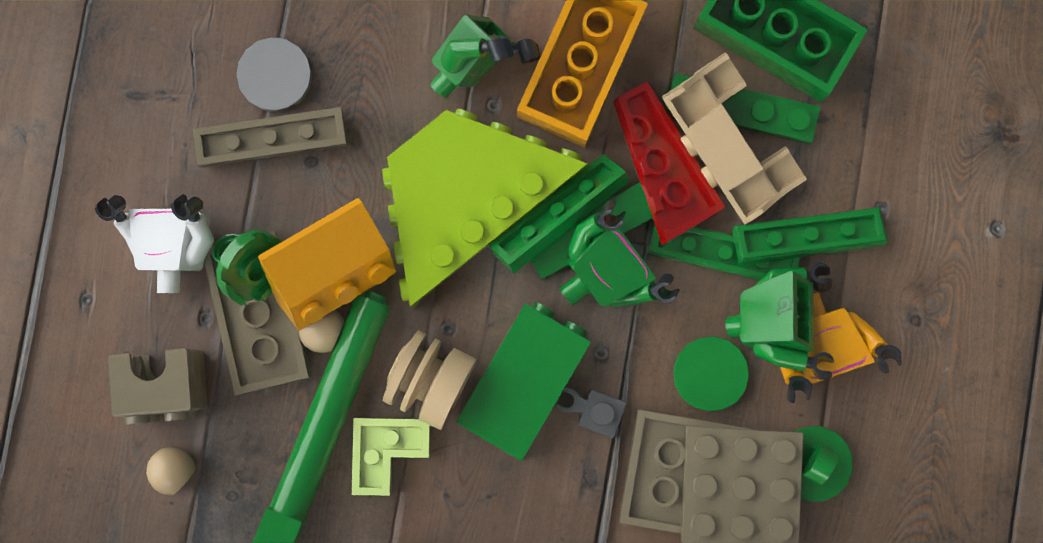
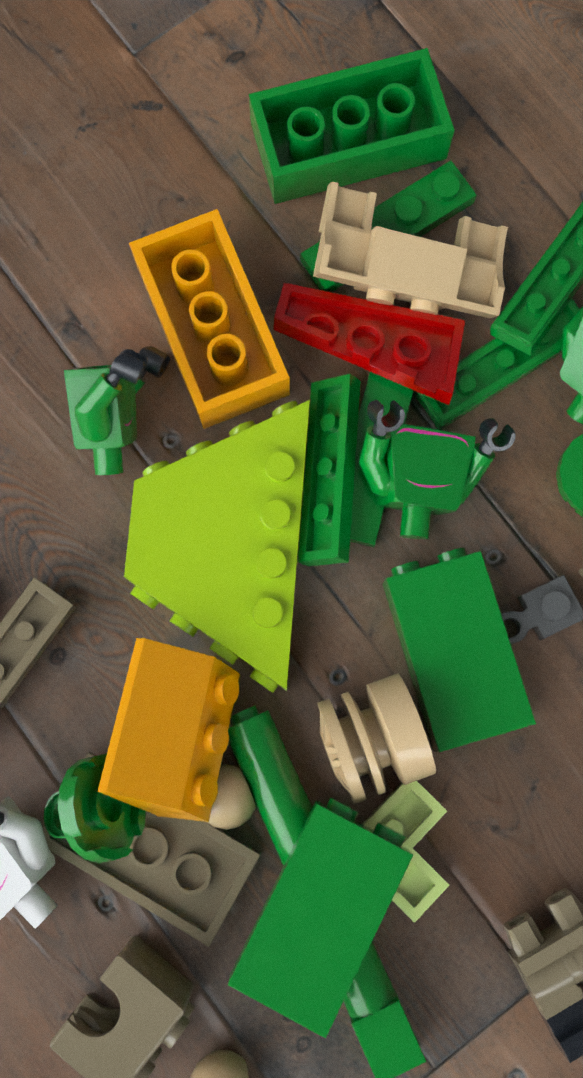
camera: 45 degrees left, 5 degrees down
(307, 436) = (321, 916): none -> green brick

